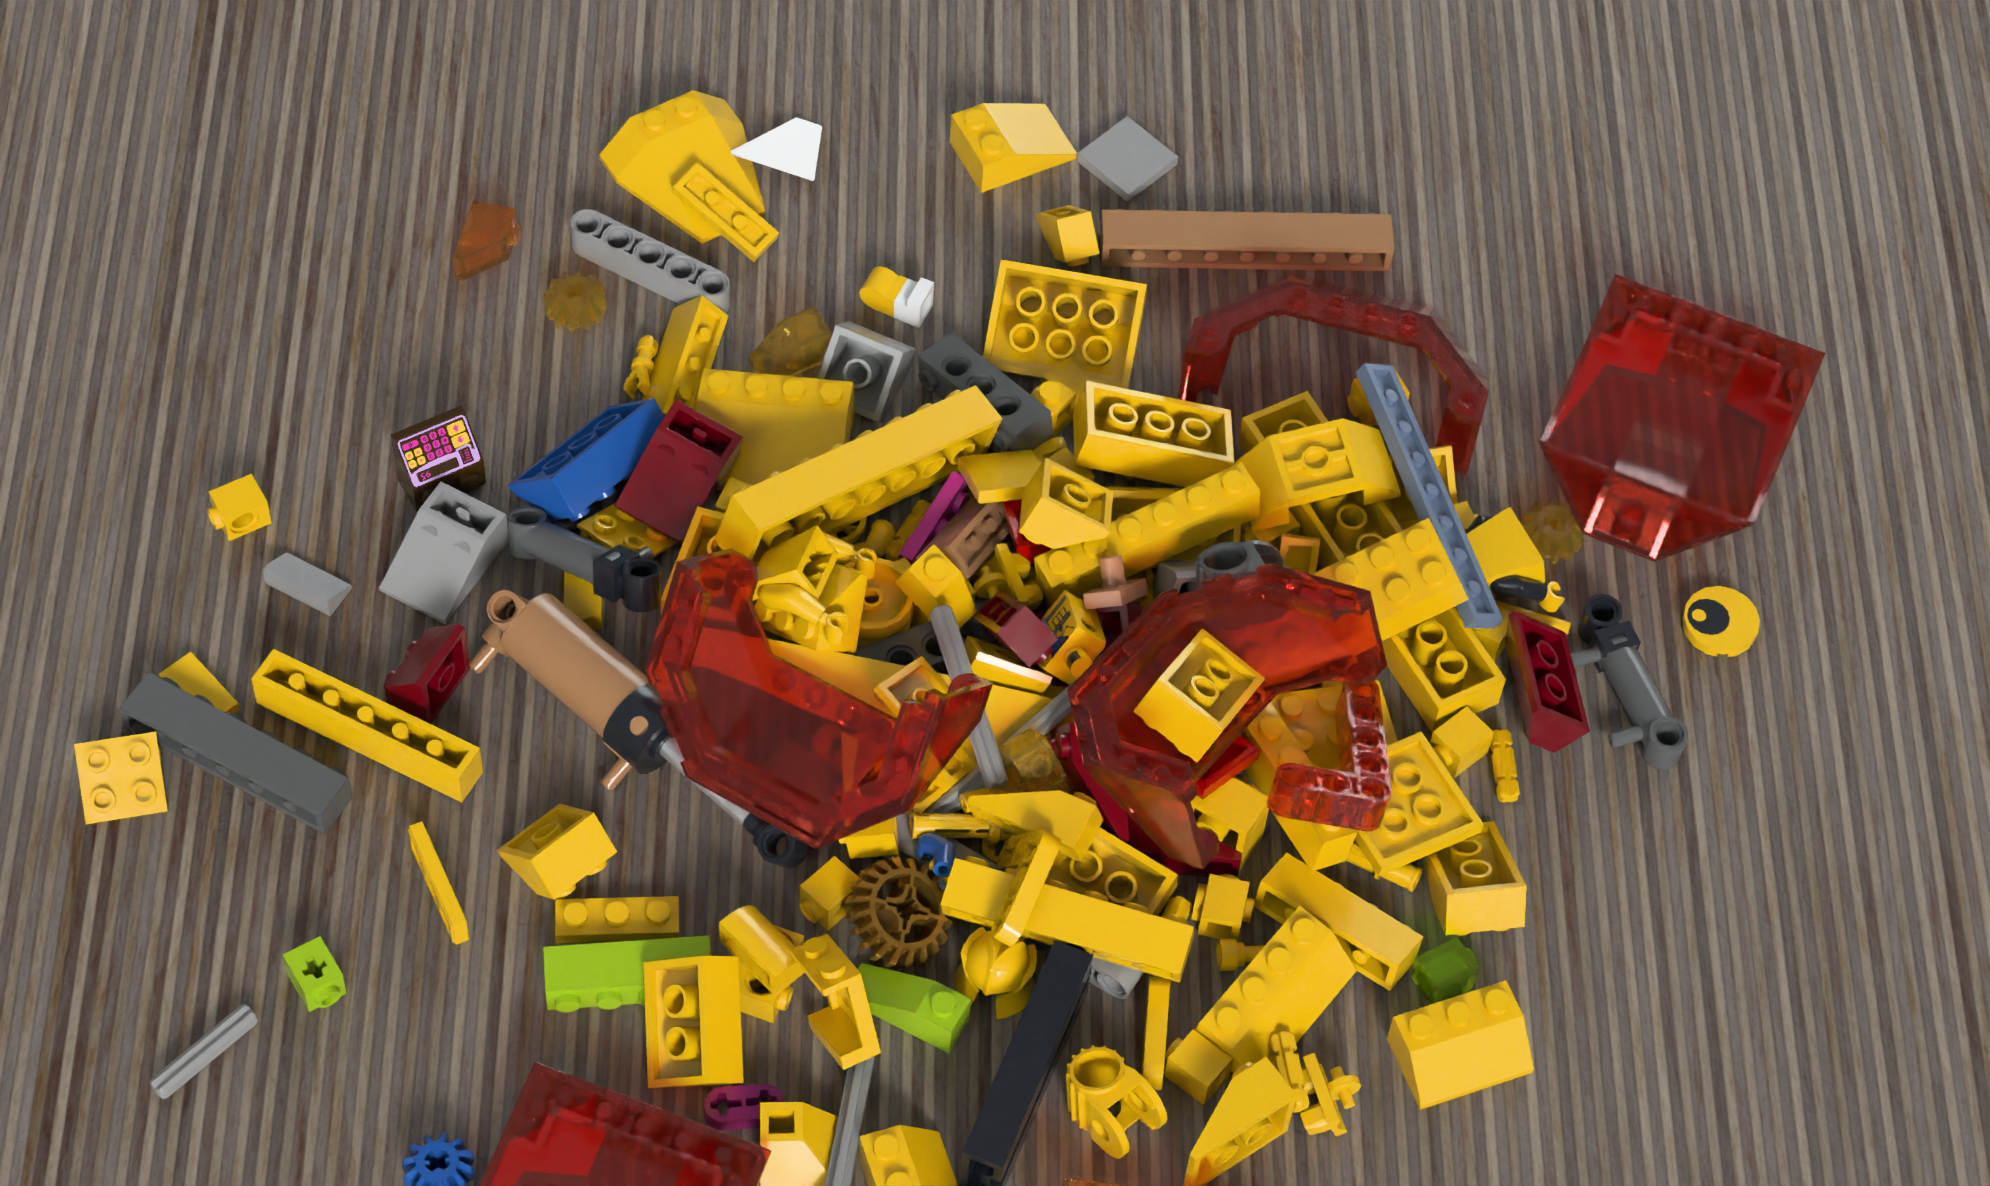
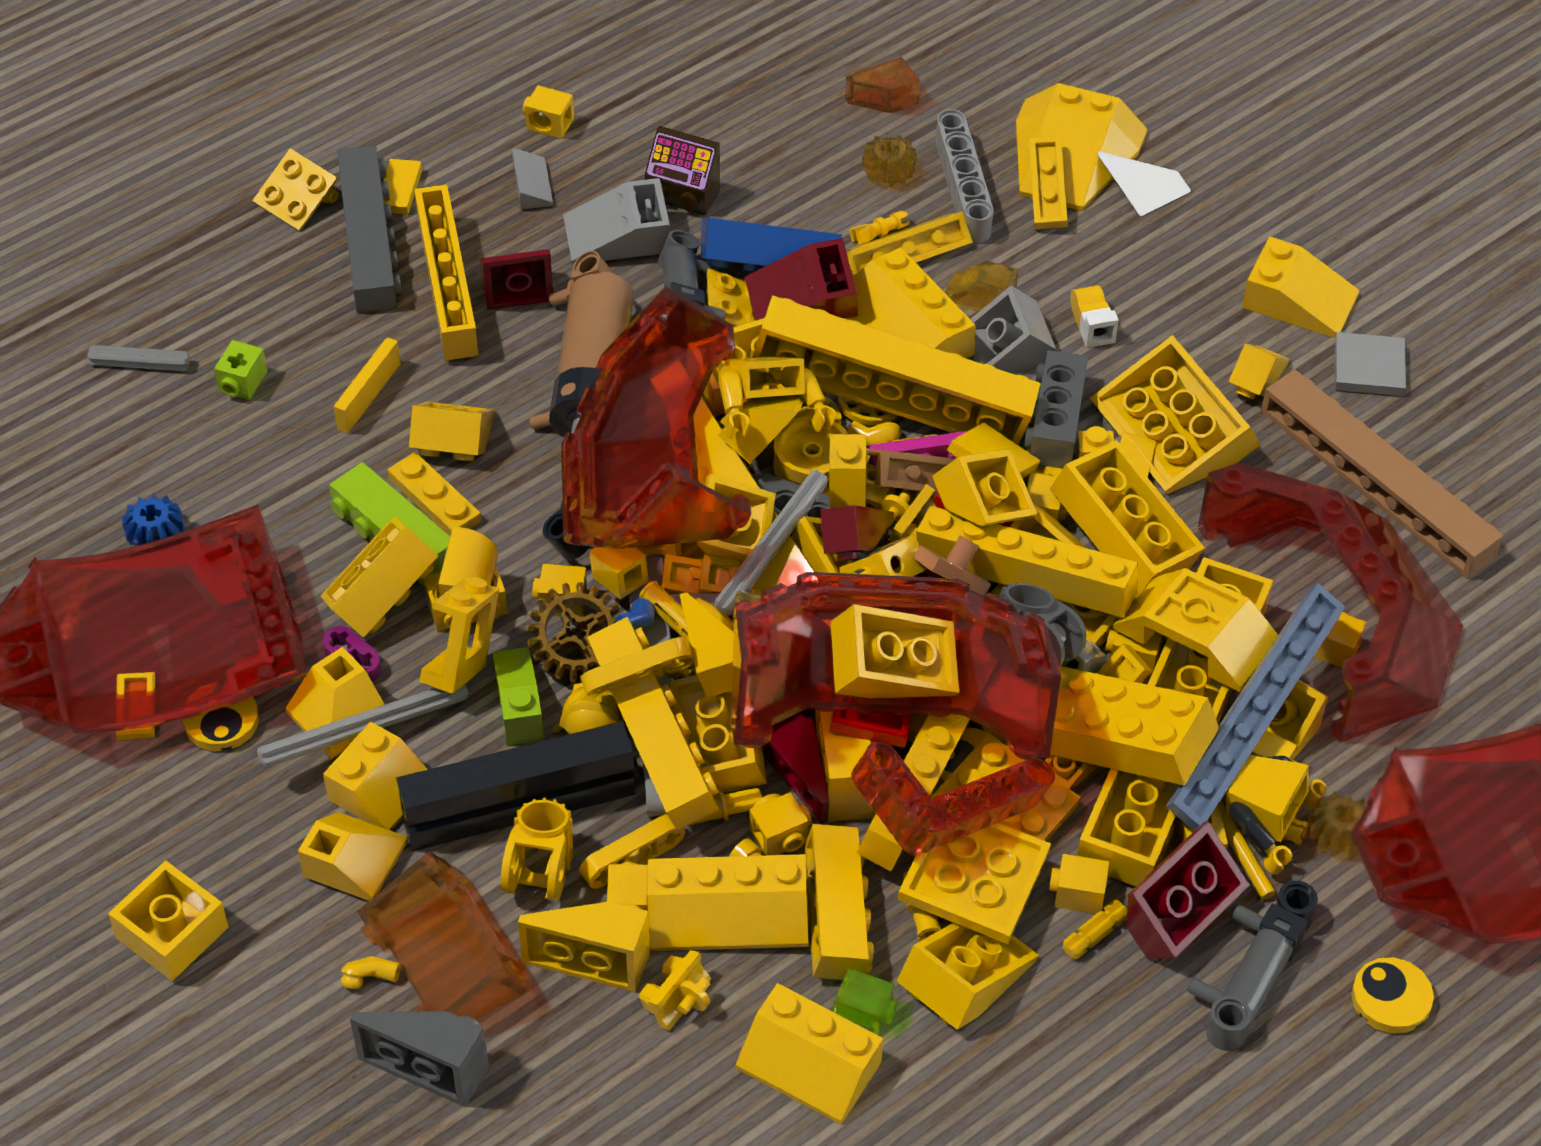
camera: 55 degrees right, 5 degrees down
(1289, 1067) = (670, 950): yellow axle -> none

